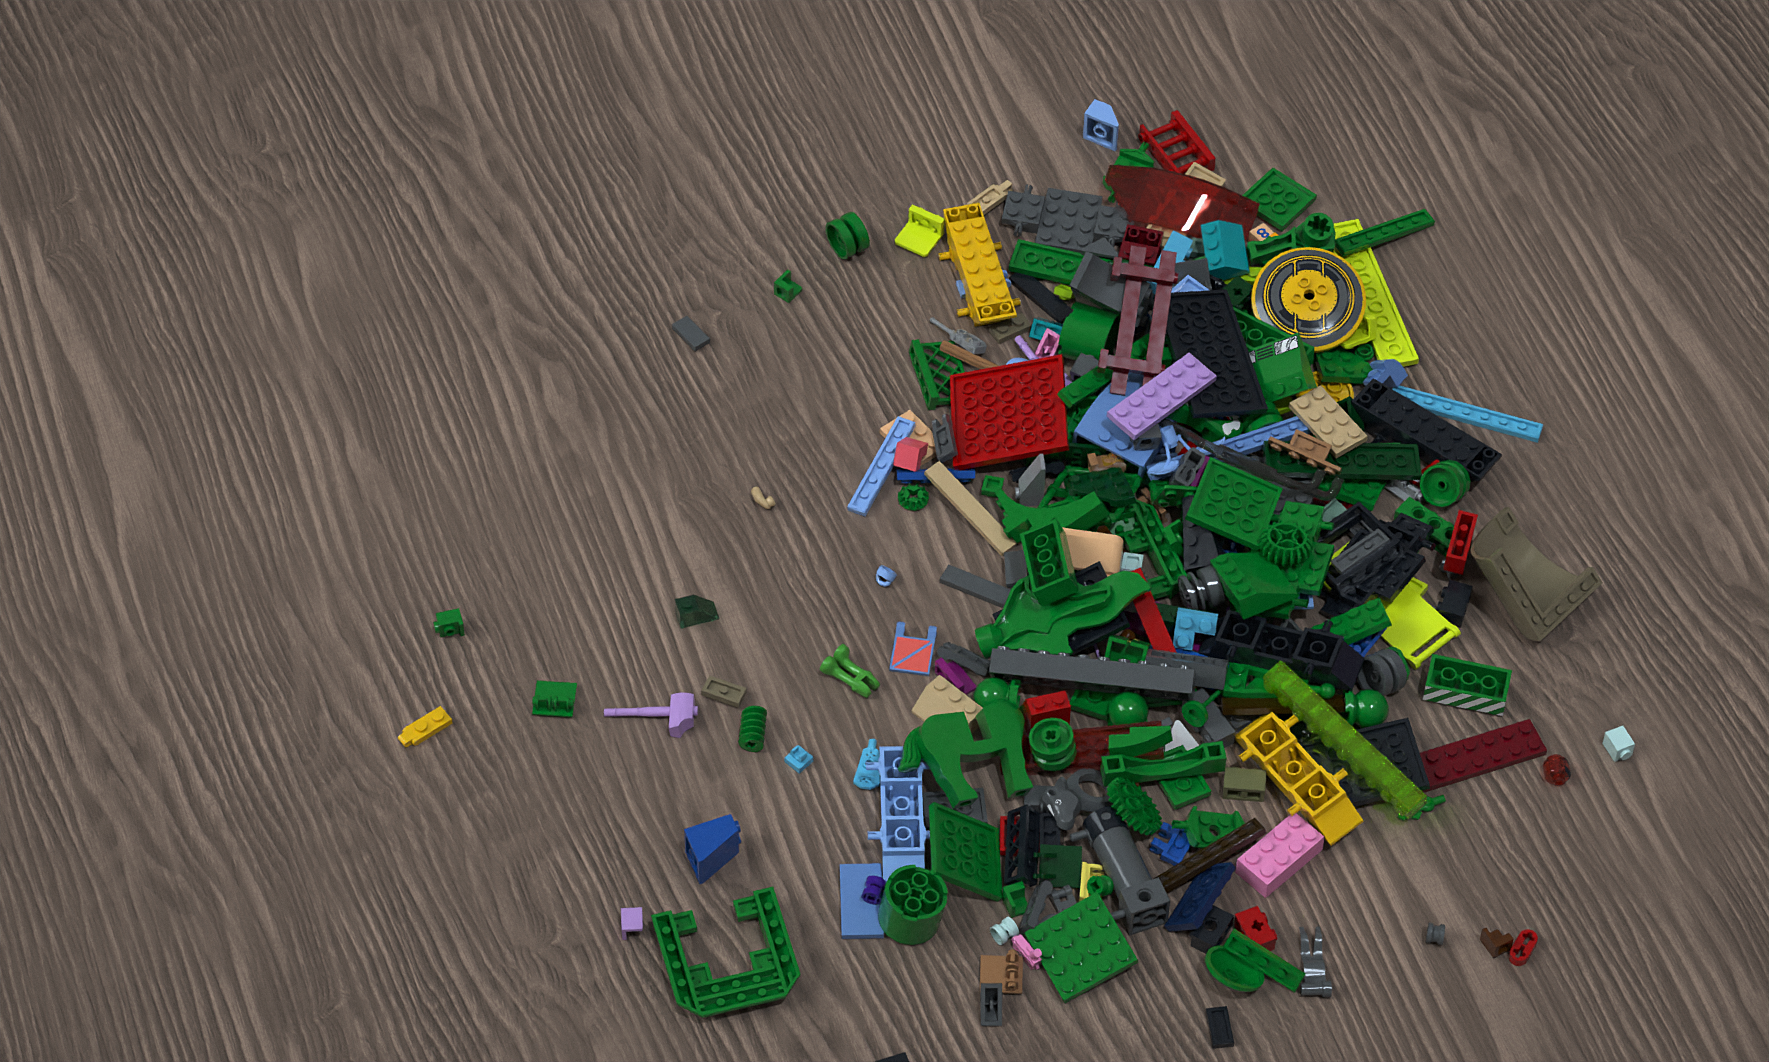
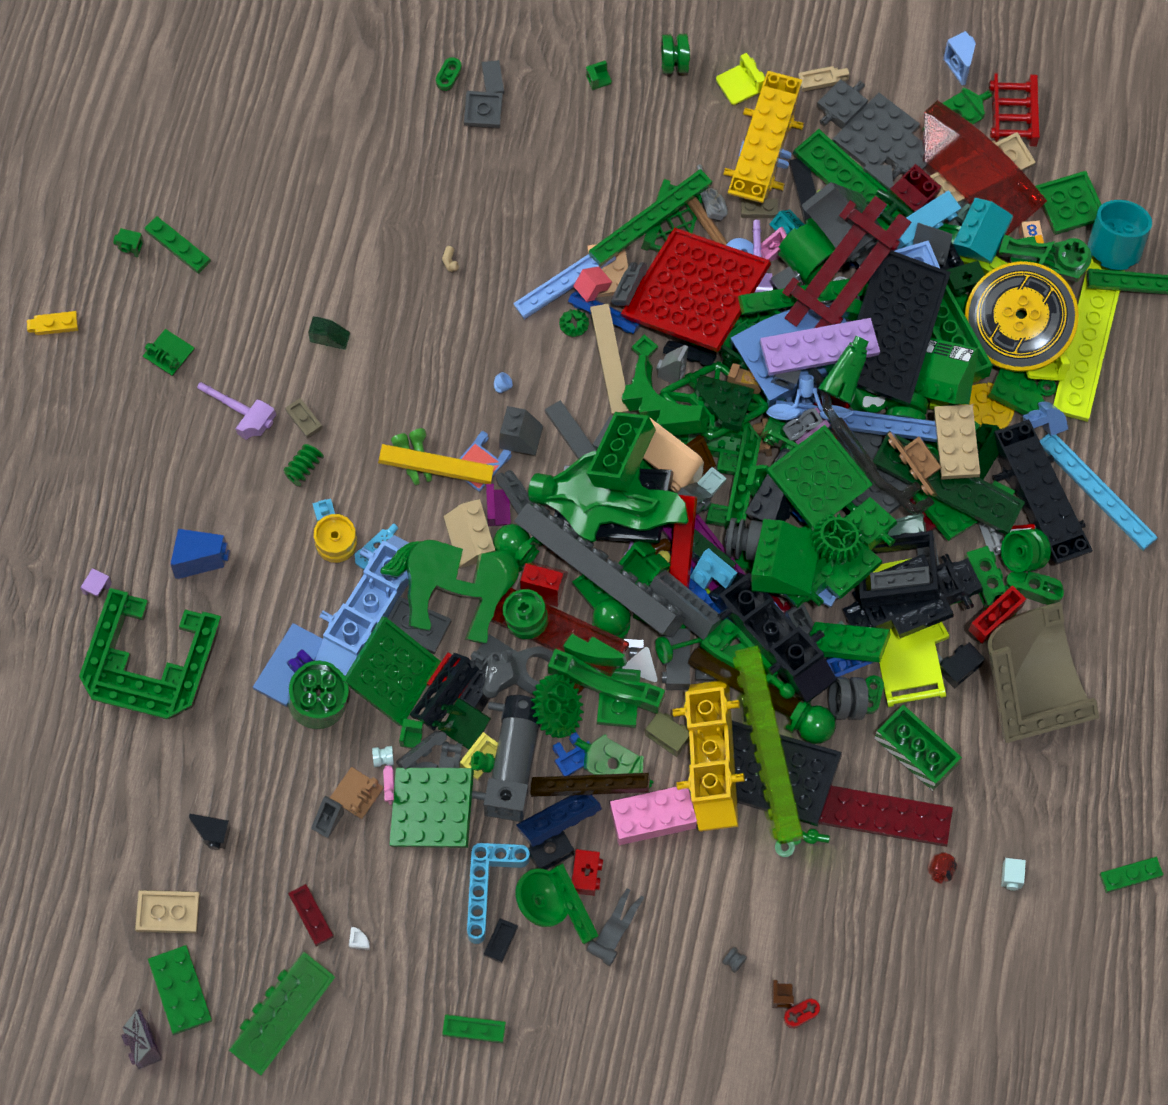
camera: 30 degrees right, 15 degrees up
(496, 606) = (177, 244): none -> green plate
(648, 351) = (448, 75): none -> green plate
(702, 362) = (483, 109): none -> dark grey plate
(829, 773) = (335, 538): none -> yellow wheel
(877, 667) = (436, 464): none -> yellow tile
(925, 375) = (650, 217): none -> green plate
(931, 605) = (520, 431): none -> dark grey slope
(1171, 987) = (482, 883): none -> medium azure beam
(1200, 411) = (844, 376): none -> green piece
(1344, 197) = (1119, 234): none -> teal brick
(1415, 819) = (780, 852): none -> plate
(1482, 505) = (1044, 583): none -> green piece
(1715, 696) = (1131, 874): none -> green plate

